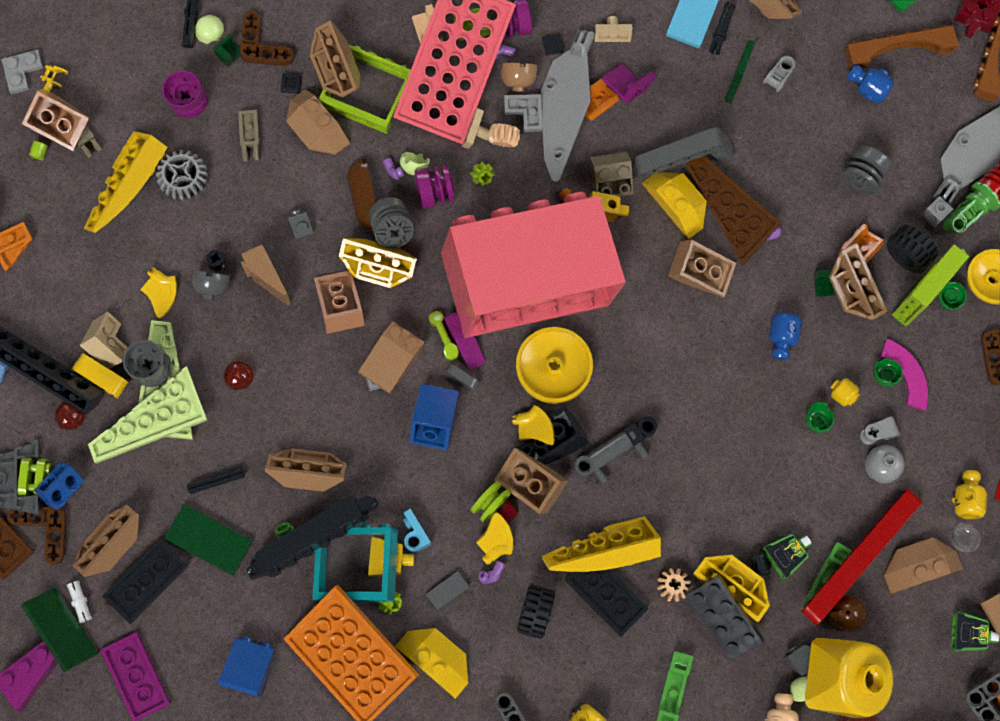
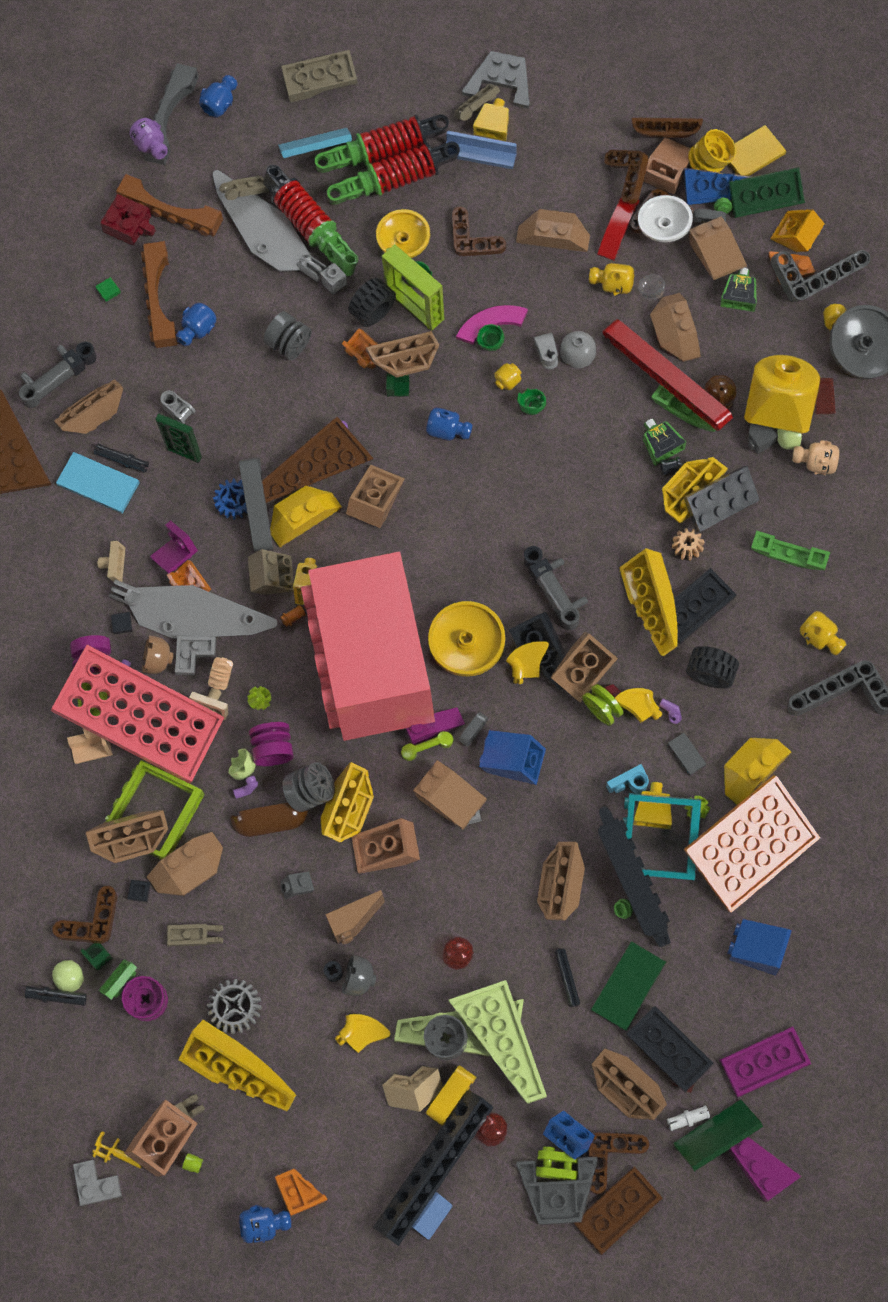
camera: 75 degrees left, 5 degrees down
(204, 70) = (117, 979): none -> bright green plate
(686, 126) = (225, 502): none -> blue gear

